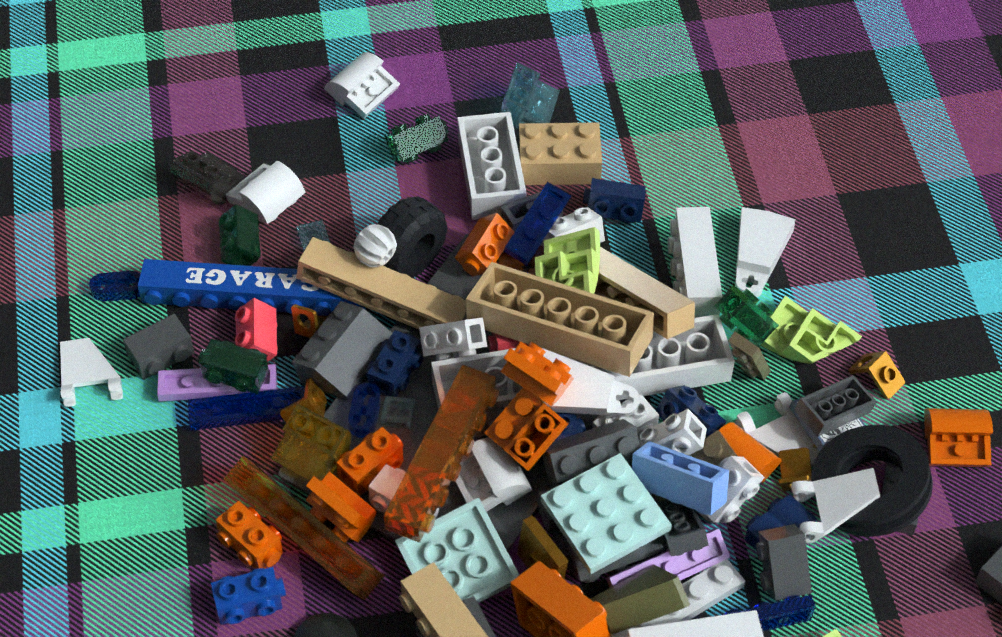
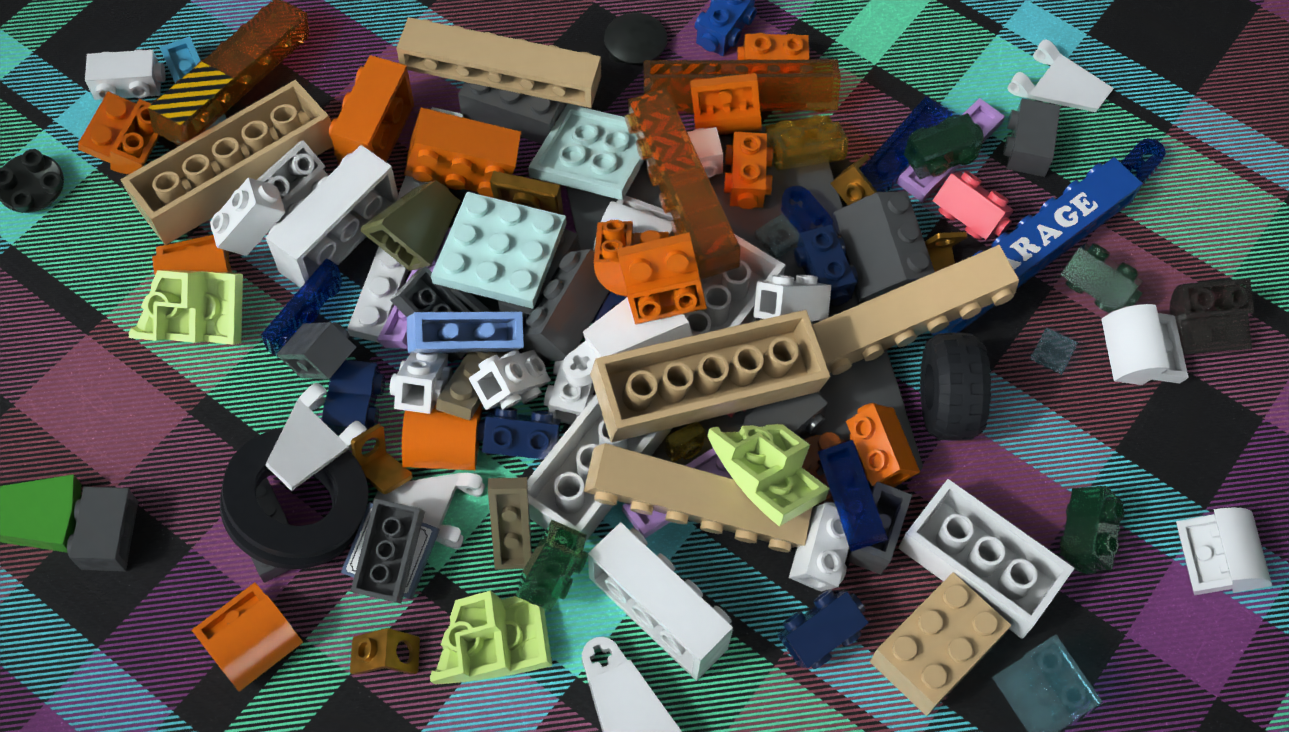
camera: 135 degrees right, 10 degrees up
(375, 245) = (953, 310): white piece -> none

